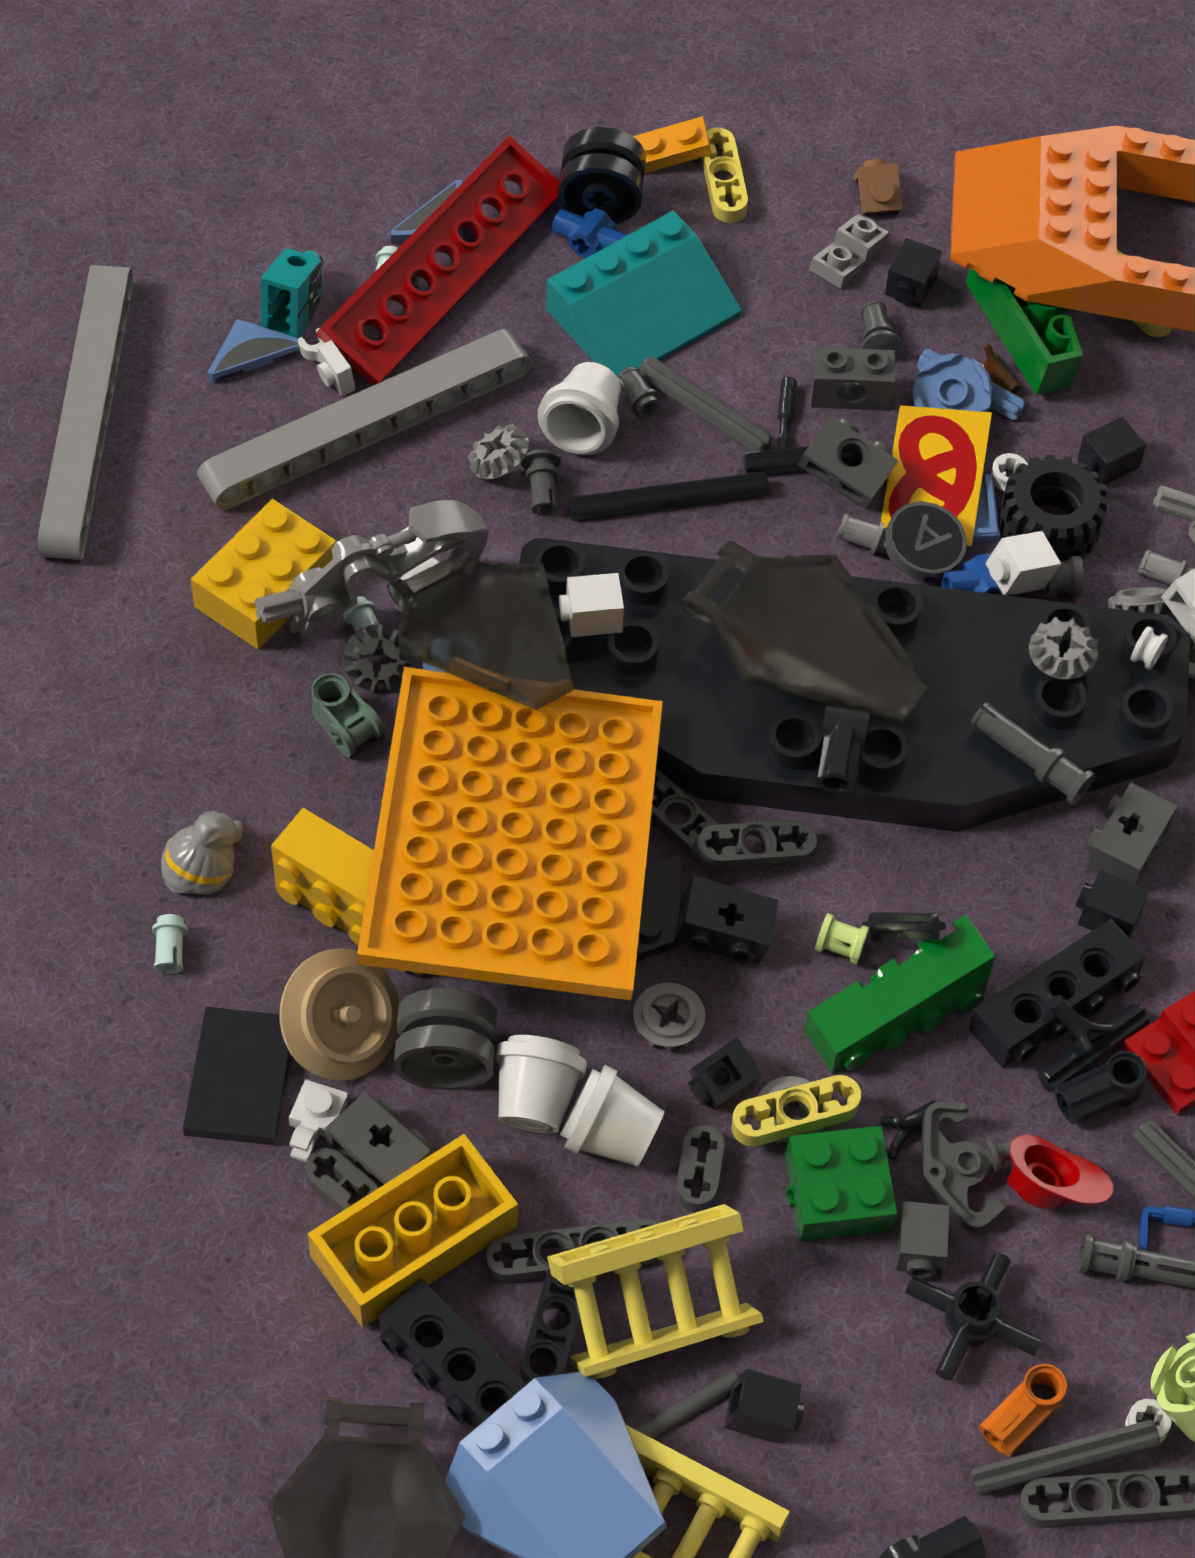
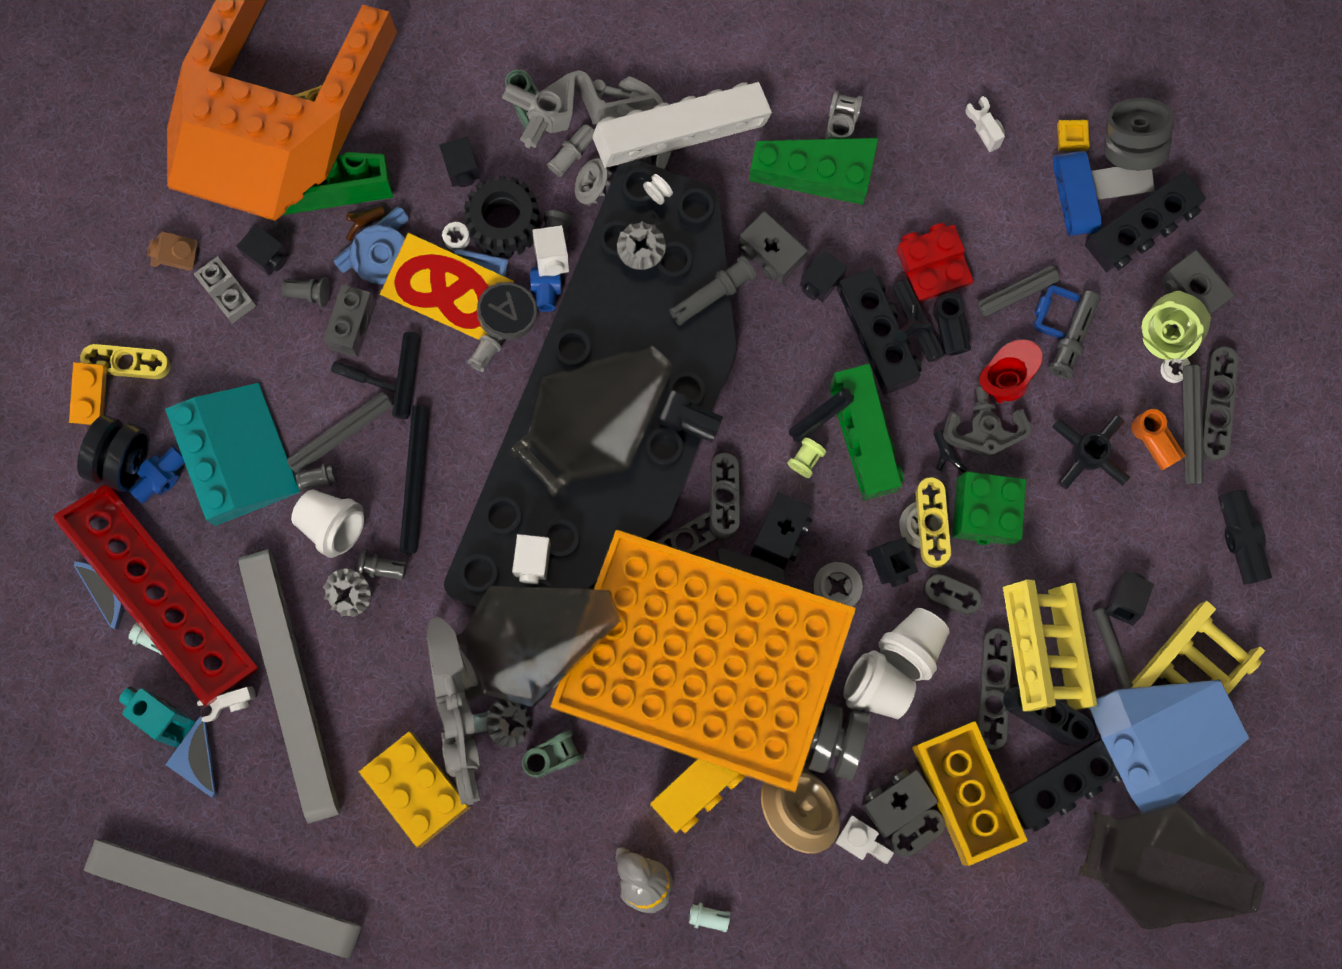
camera: 75 degrees left, 20 degrees up
(238, 1077) = (820, 888): black tile -> none
(856, 483) = (414, 356): dark grey brick -> none
(922, 1239) = (1035, 467): dark grey brick -> none

